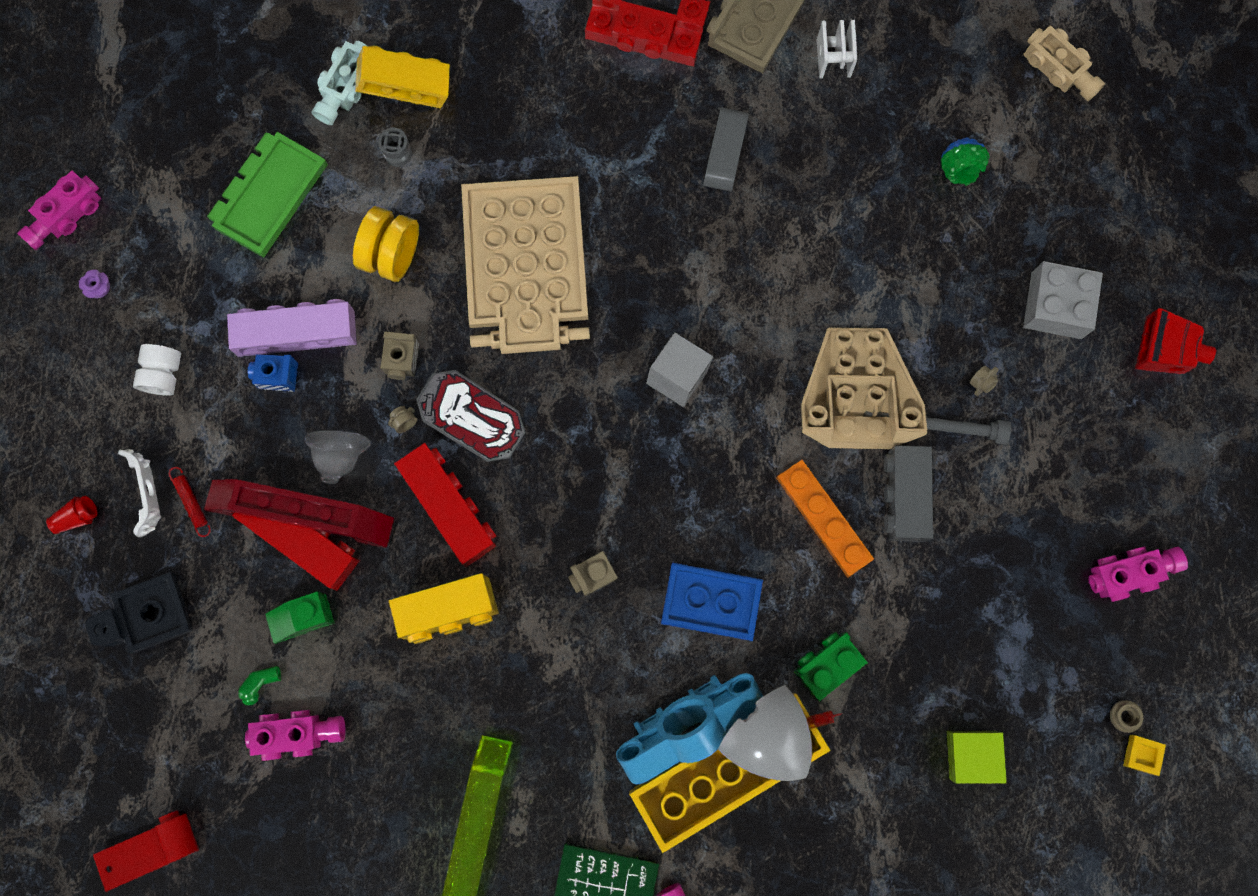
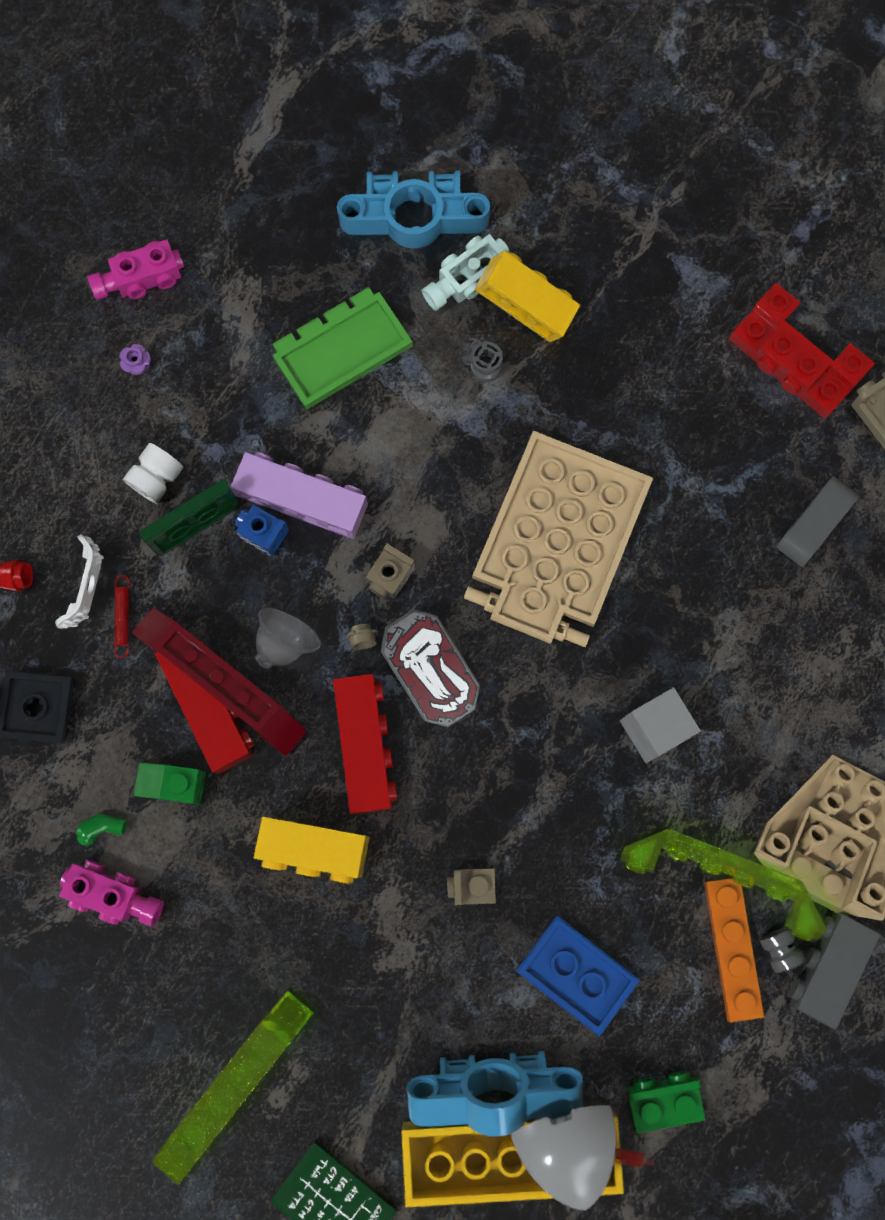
camera: 30 degrees right, 0 degrees up
(207, 390) = (190, 518): none -> dark green tile
(289, 26) = (385, 193): none -> dark azure piece
(385, 243) = (430, 456): yellow wheel -> none
(862, 498) = (782, 950): none -> dark grey wheel
(865, 462) = (802, 916): none -> clear neon green slope

